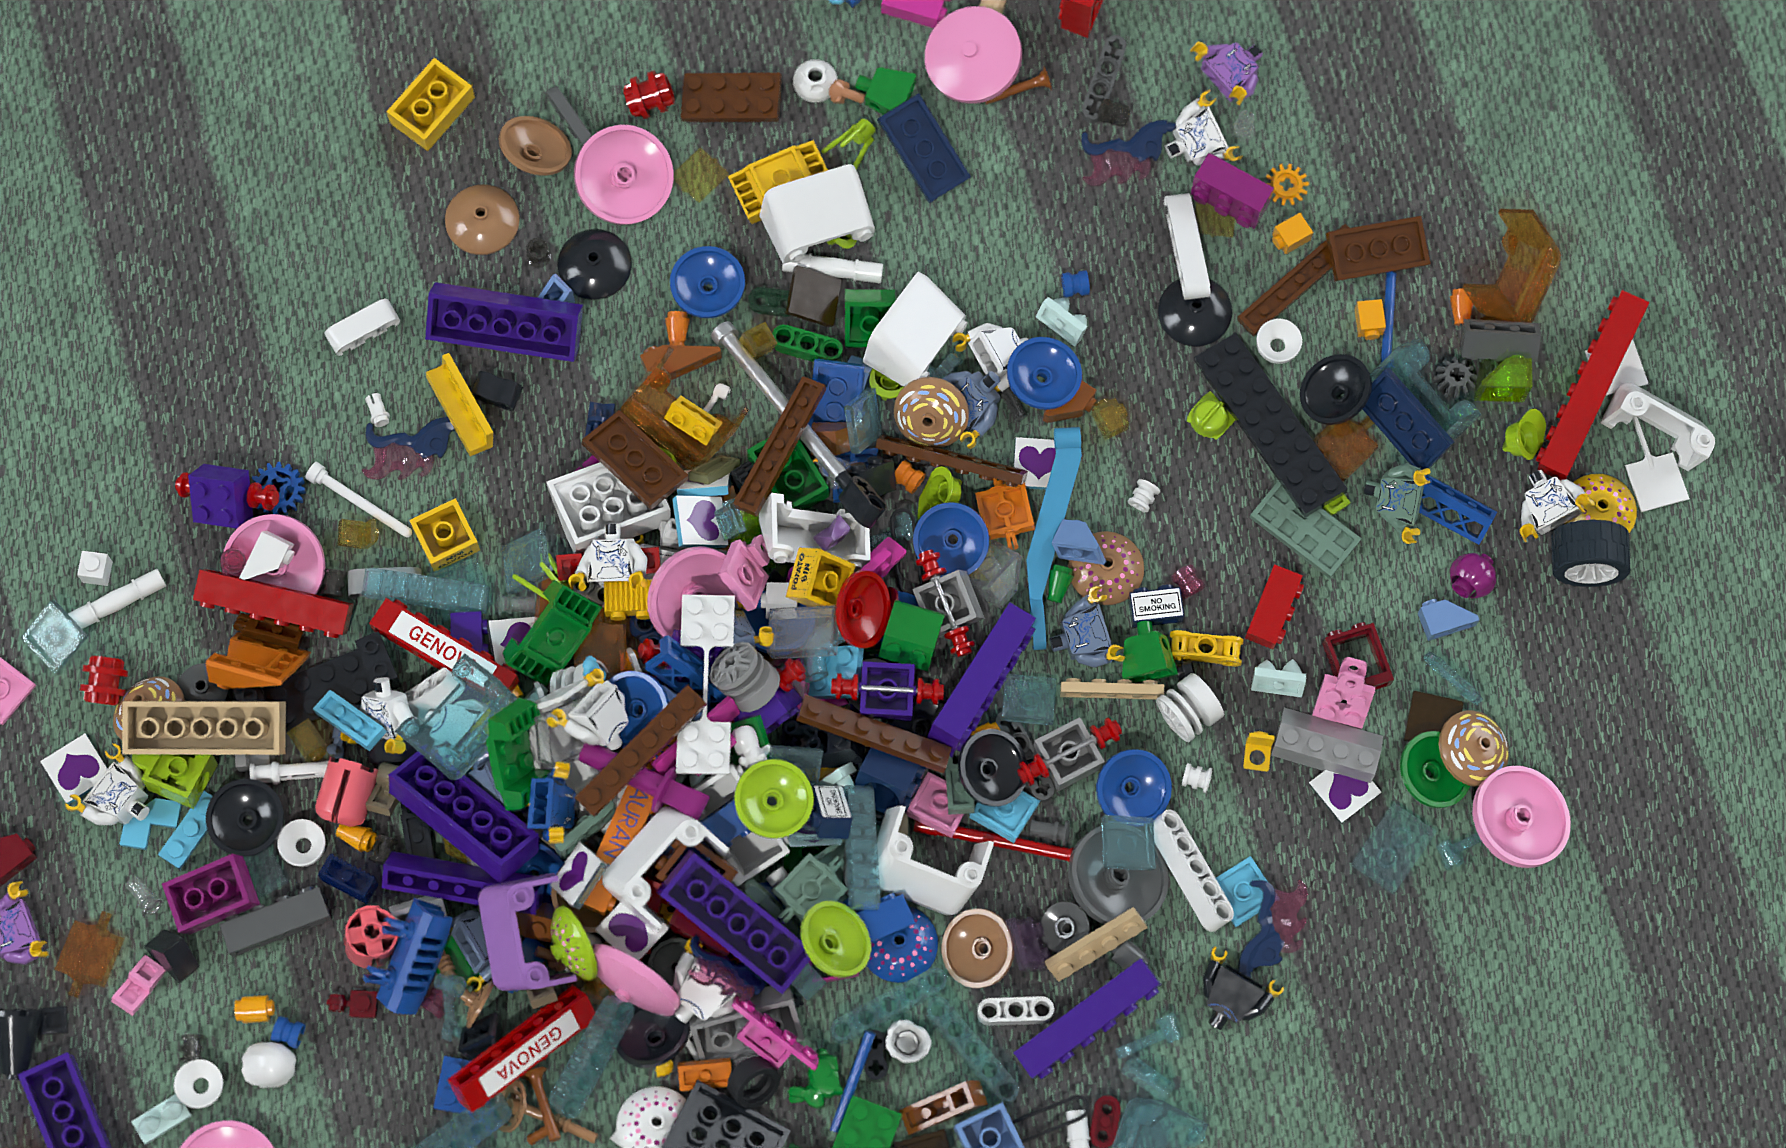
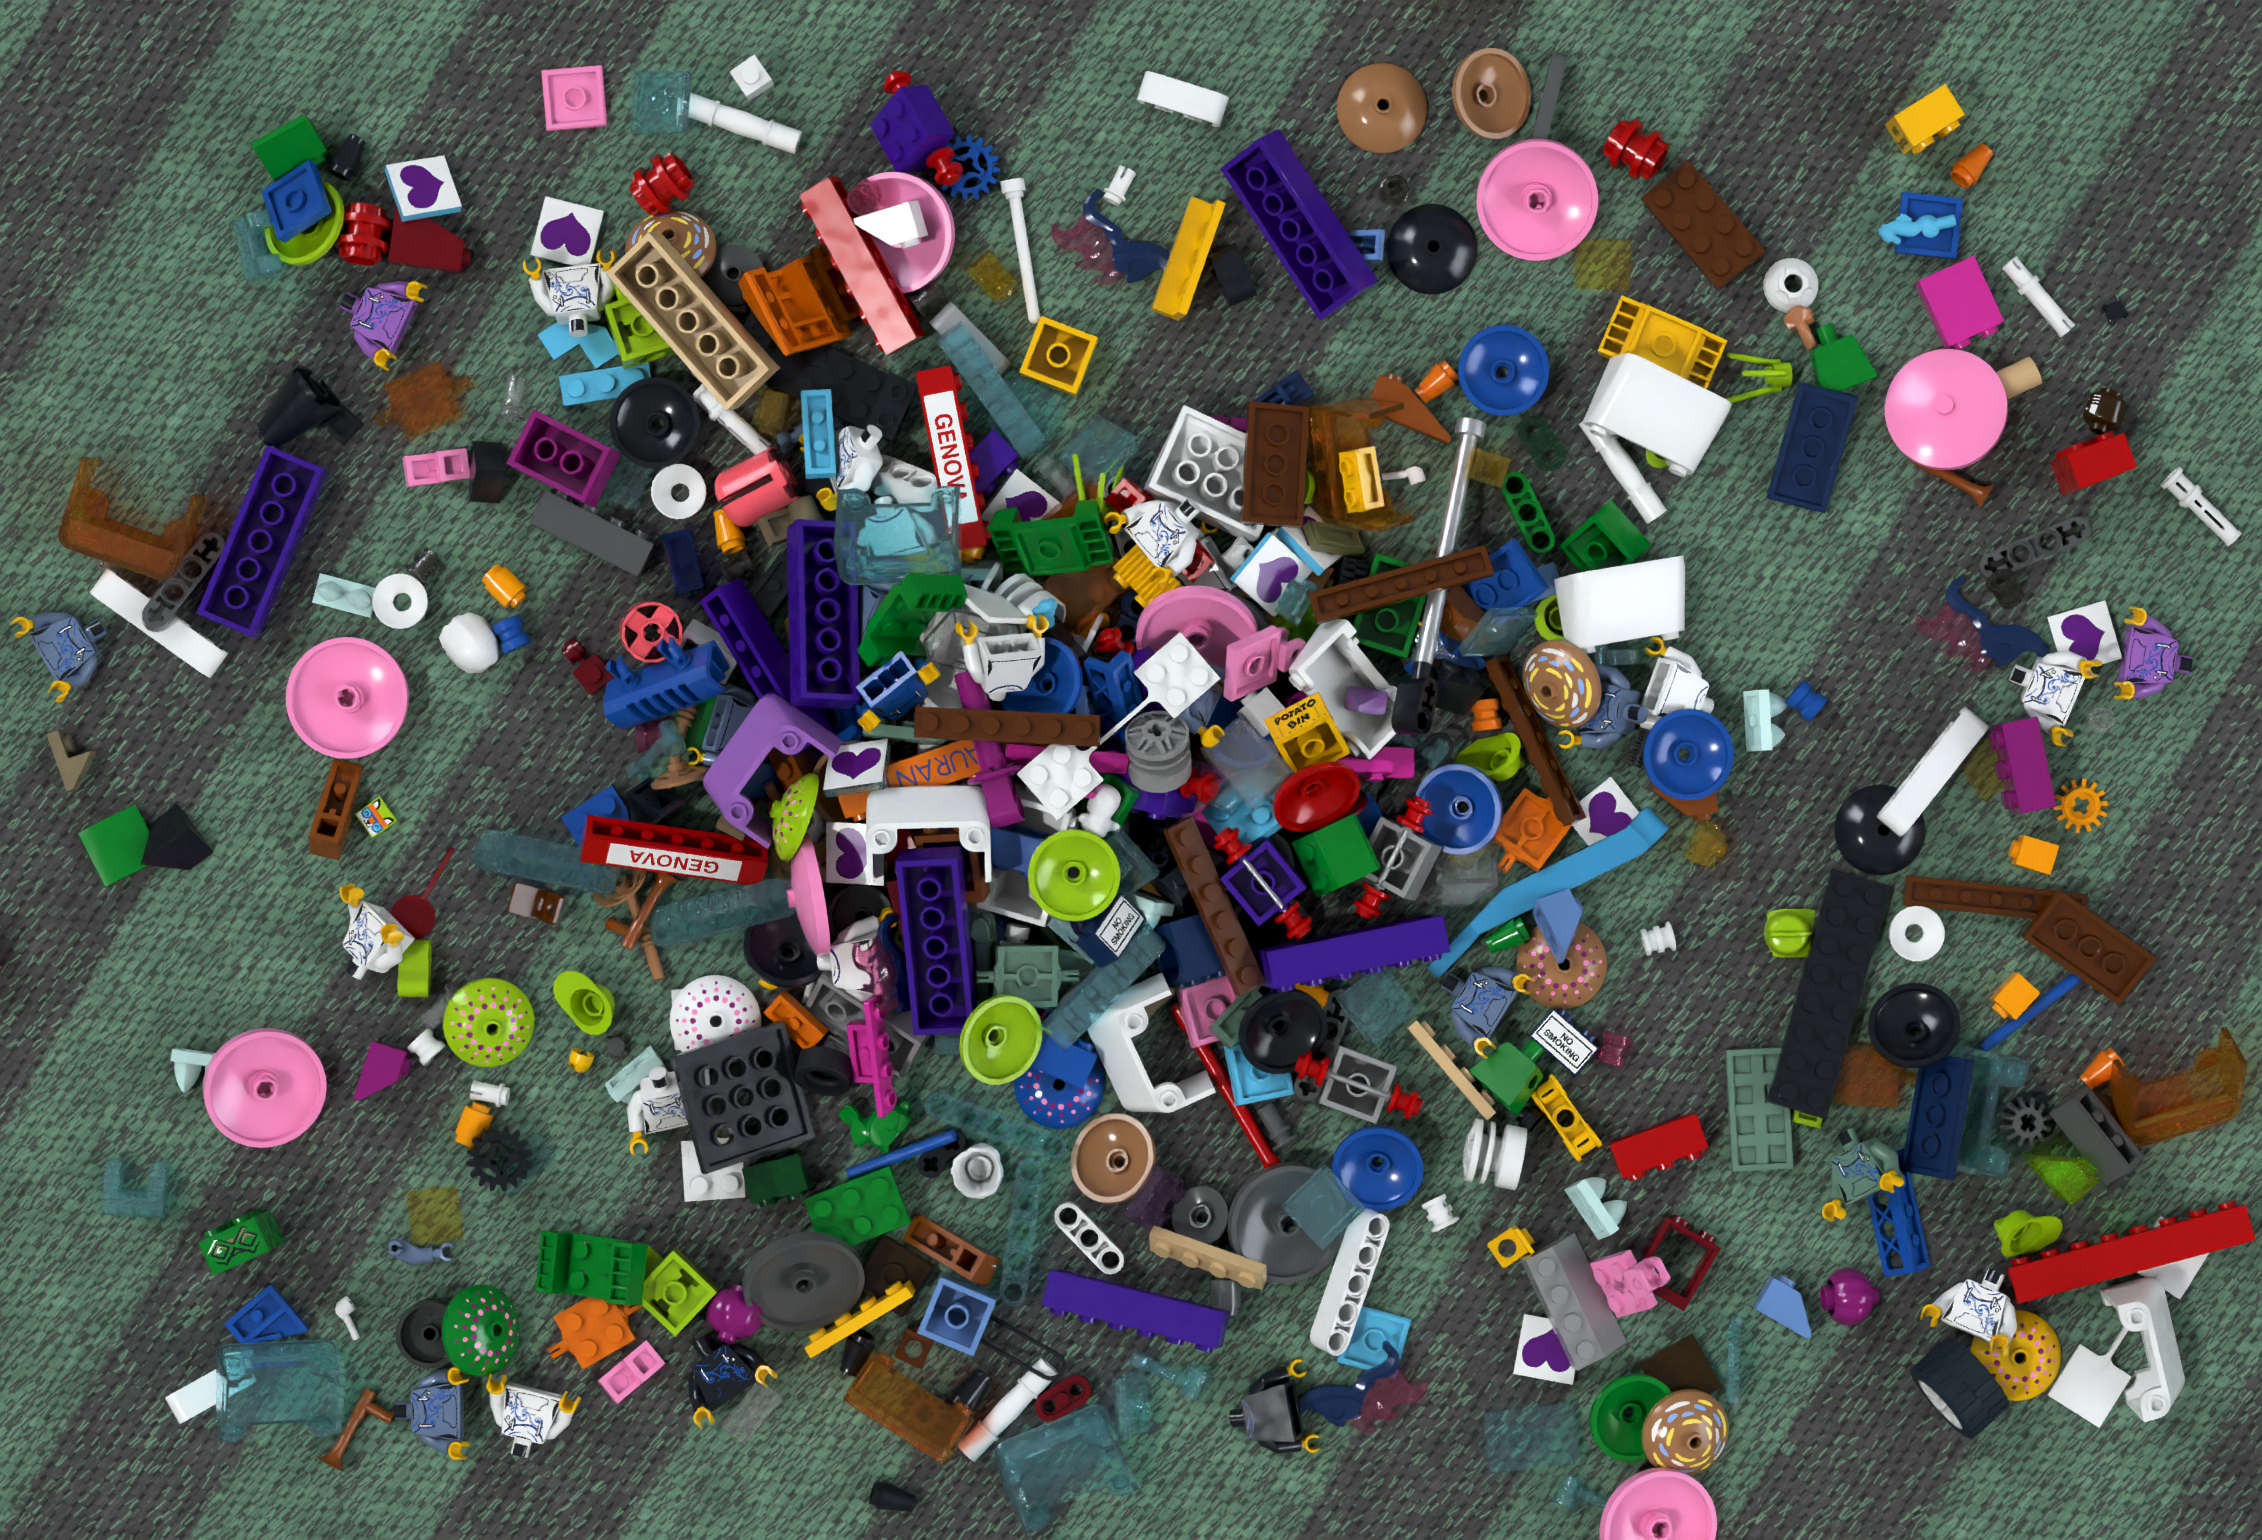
camera: 45 degrees right, 15 degrees up
(813, 296) = (1578, 476): dark brown tile -> none
(1180, 90) = (2085, 632): none -> tile

